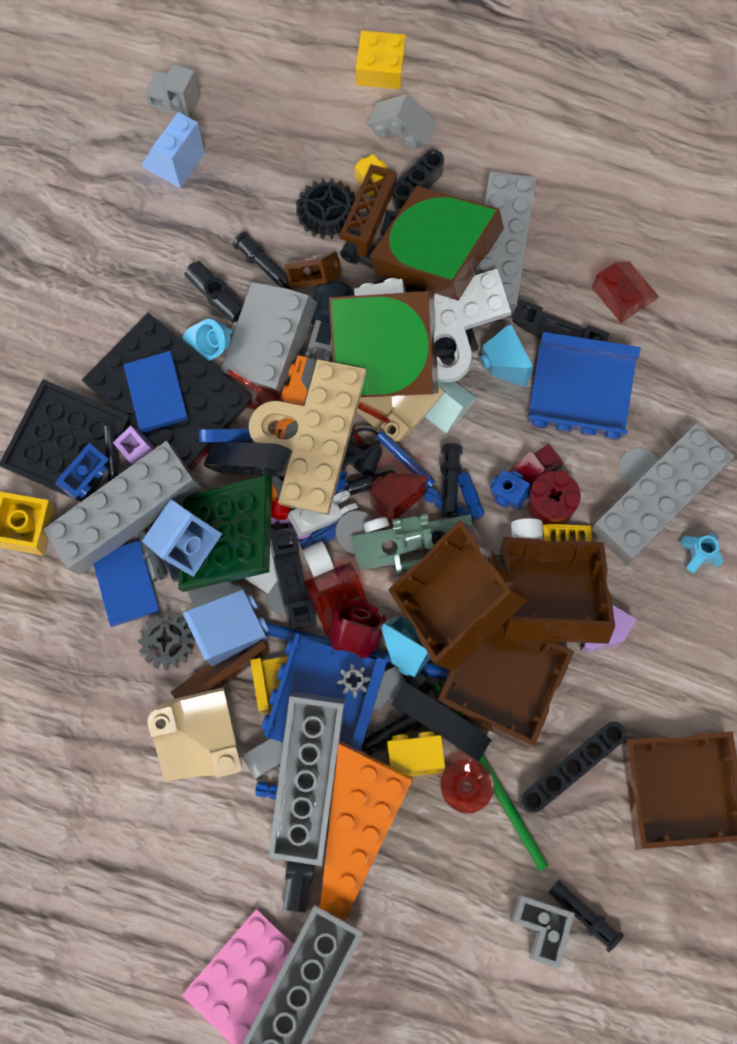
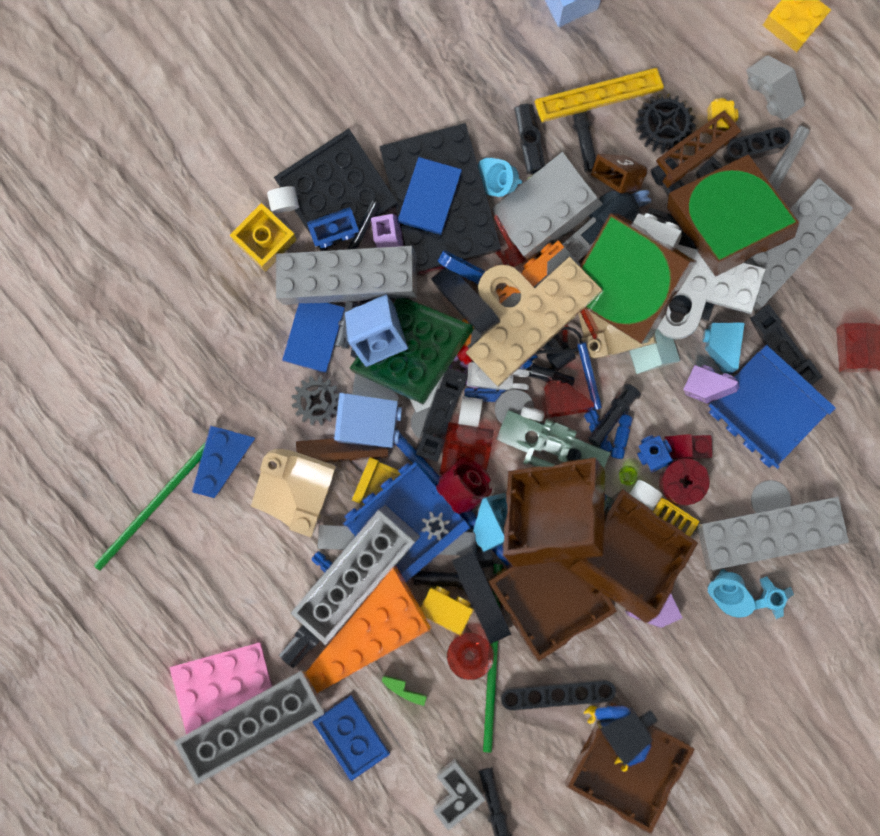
camera: 30 degrees right, 10 degrees up
(19, 477) = (283, 199): none -> white piece
(69, 837) = (149, 509): none -> green piece
(105, 757) = (218, 460): none -> blue wing
(252, 218) = (599, 95): none -> yellow tile
(349, 279) = (642, 197): none -> light blue bush
(405, 944) = (351, 737): none -> blue tile
(418, 861) = (397, 686): none -> bright green slope
(451, 169) = (788, 157): none -> light grey axle
(502, 522) = (632, 472): none -> clear neon green hinge
(517, 401) = (709, 386): none -> lavender slope
(659, 757) = (624, 732): none -> black torso
(665, 571) = (731, 594): none -> medium azure piece

